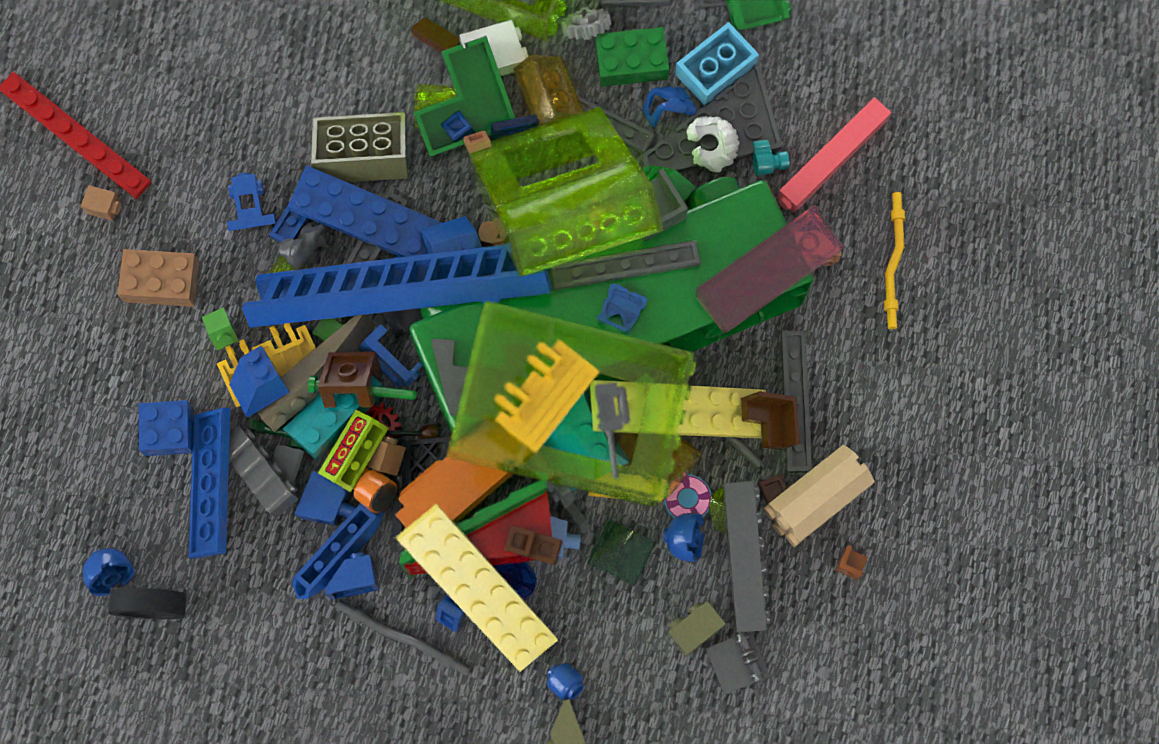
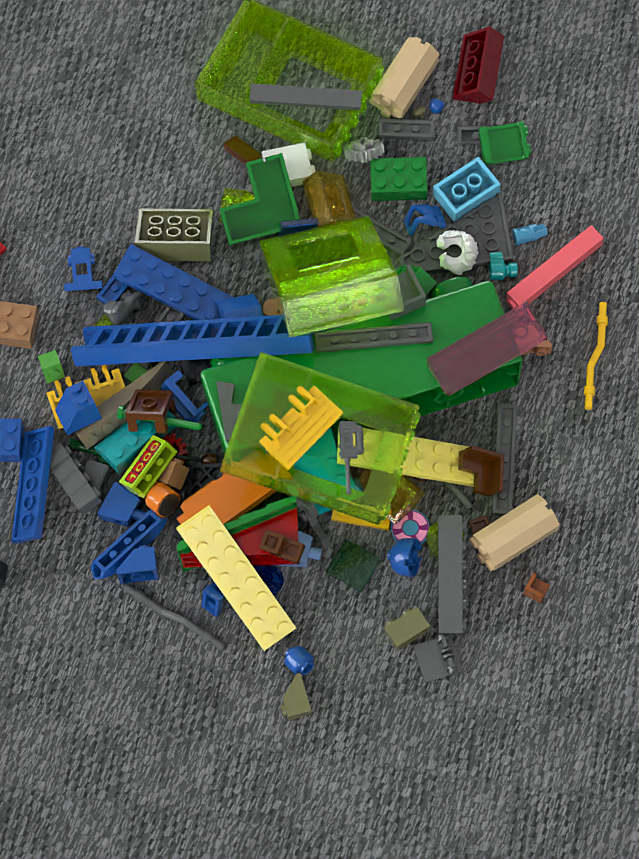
camera: 10 degrees right, 5 degrees down
(457, 127) = (254, 223): blue slope -> none
(477, 142) = (267, 235): nougat tile -> none
(622, 303) = (371, 367): blue piece -> none
(797, 113) = (529, 233): none -> dark azure hinge

